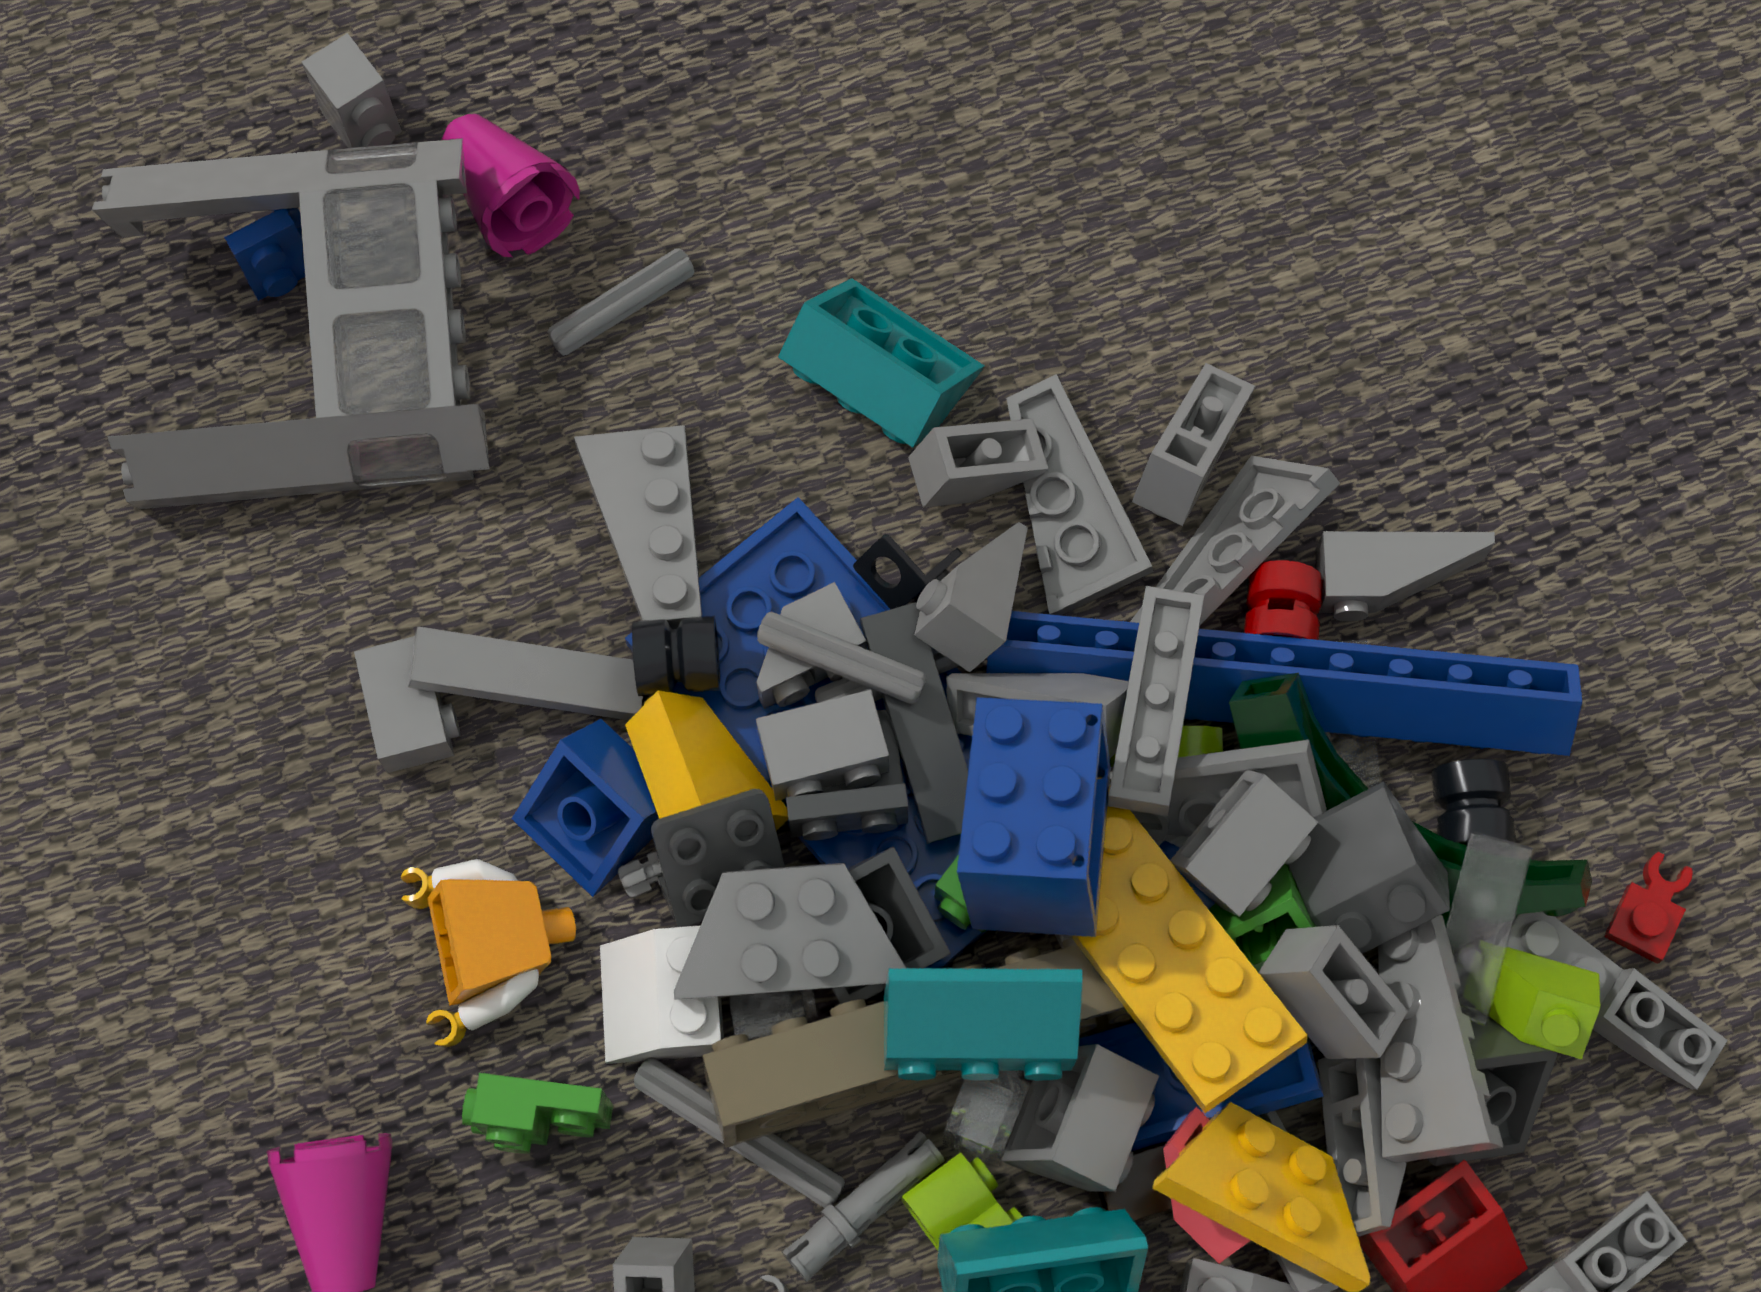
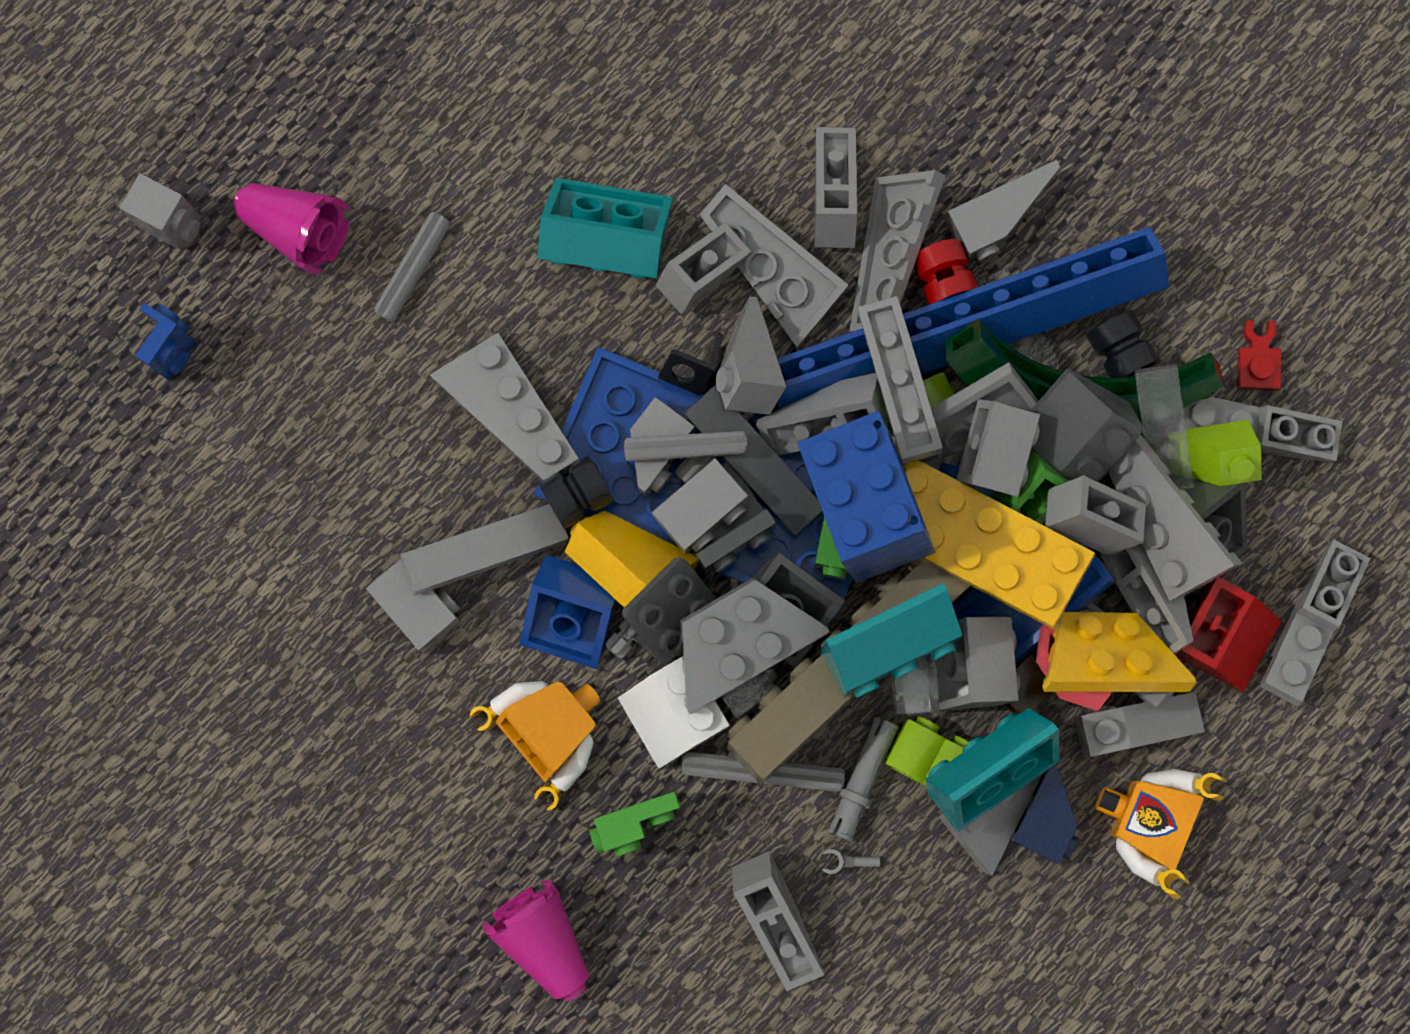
camera: 20 degrees left, 10 degrees up
(375, 316) = (261, 354): light grey piece -> none

